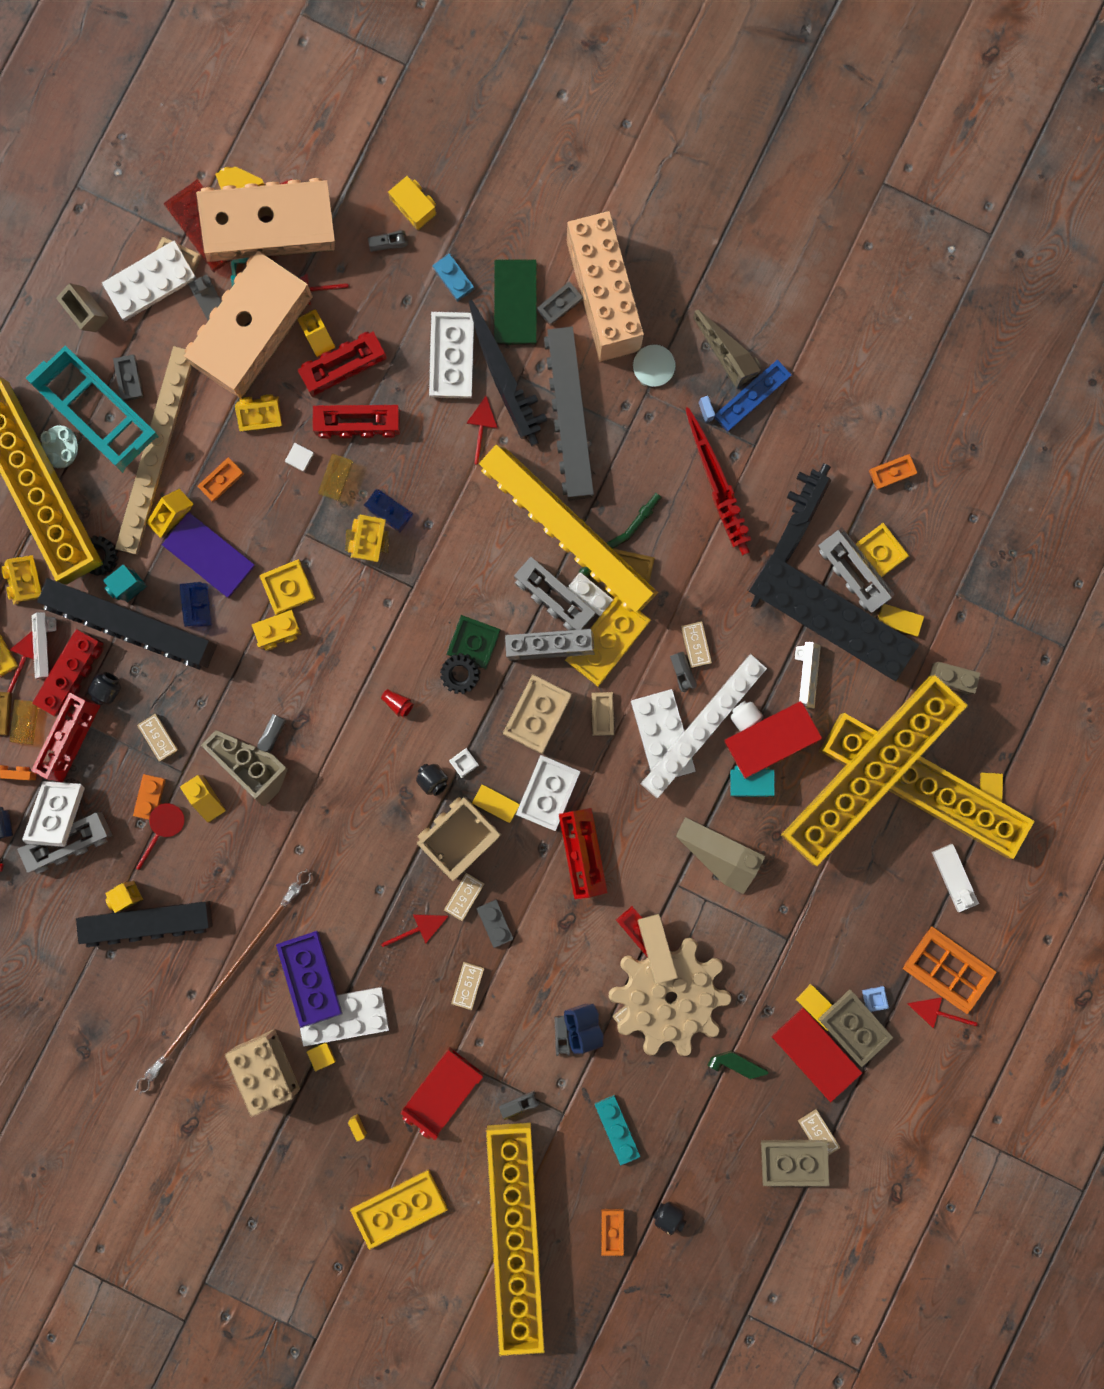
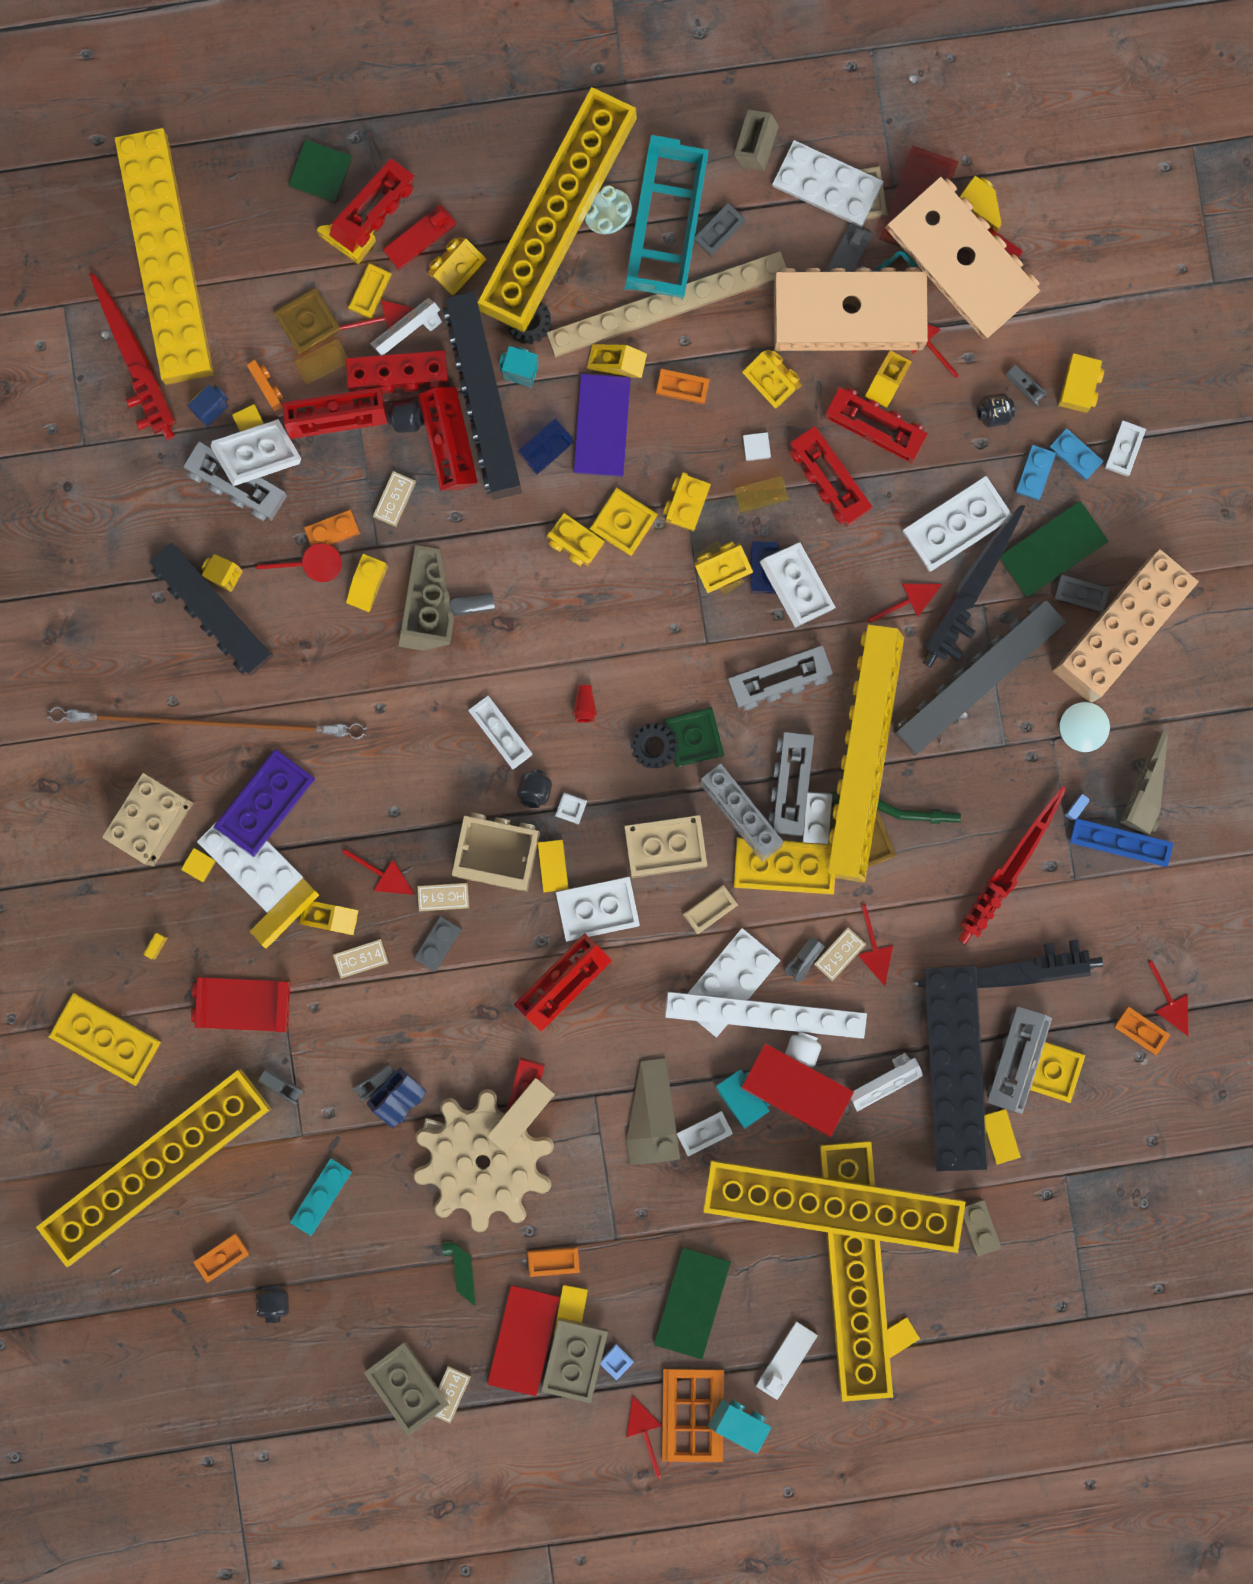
camera: 55 degrees right, 0 degrees up
(26, 802) = (248, 418): none -> yellow tile
(140, 669) = (448, 438): none -> red brick
(304, 532) = (687, 502): none -> yellow bracket
(375, 776) = (500, 732): none -> white hinge
(390, 273) = (995, 410): none -> black head
(397, 1018) = (284, 913): none -> yellow tile
(416, 495) = (797, 584): none -> white plate
(422, 988) = (329, 917): none -> yellow slope
(460, 240) = (1076, 454): none -> dark azure plate
(479, 203) = (1125, 448): none -> white plate
(482, 518) = (819, 665): none -> light grey brick
(717, 621) = (878, 959): none -> red piece
(757, 826) = (704, 1133): none -> white plate
(775, 995) = (553, 1261): none -> orange tile
(870, 916) = (692, 1303): none -> dark green tile
(894, 441) = (1176, 1011): none -> red piece
(980, 943) = (739, 1426): none -> teal brick

